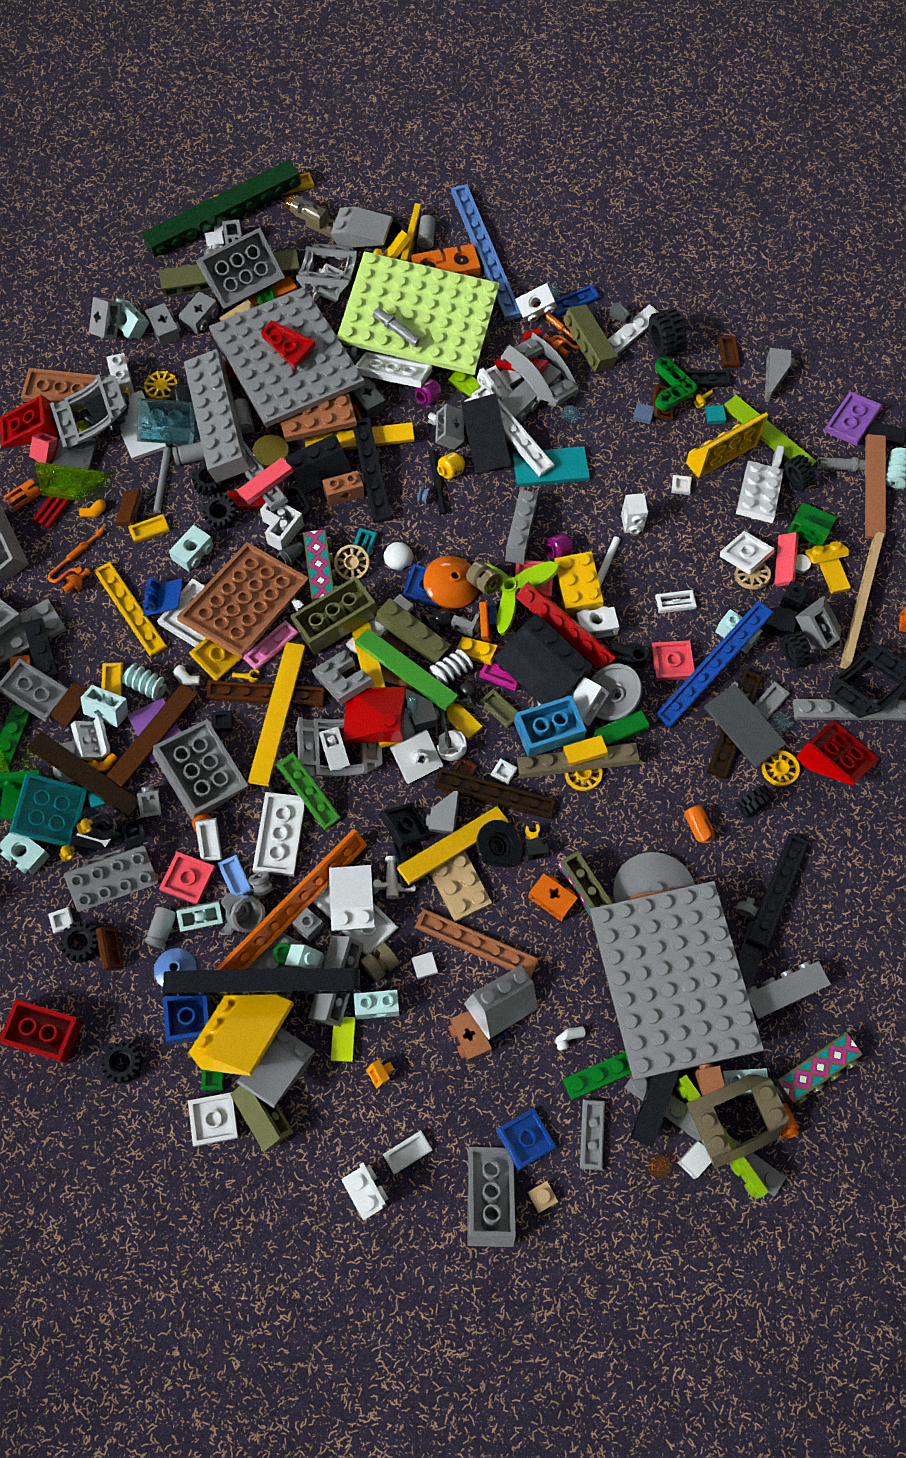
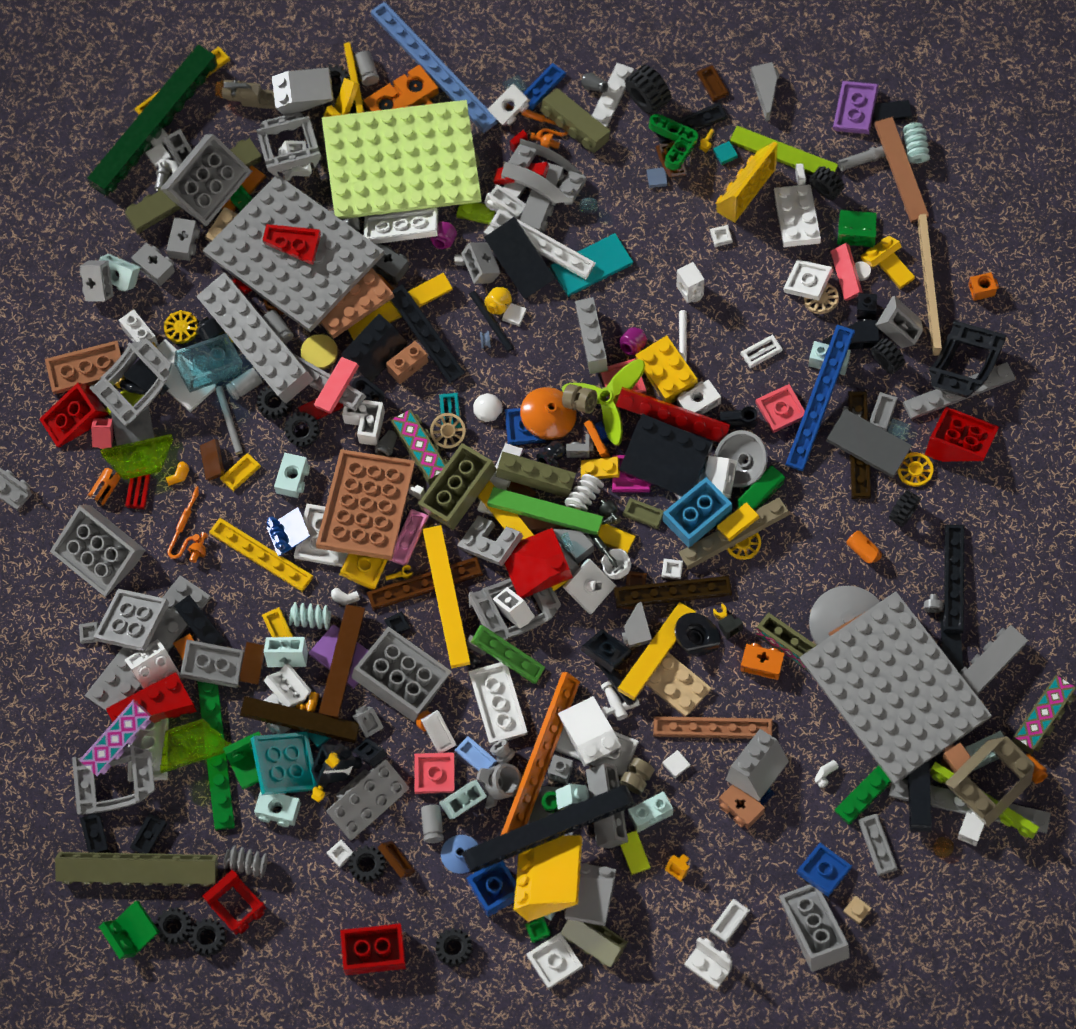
camera: 15 degrees left, 0 degrees up
(391, 323) = (389, 184): light grey pin -> none
(460, 483) = (514, 314): none -> white tile

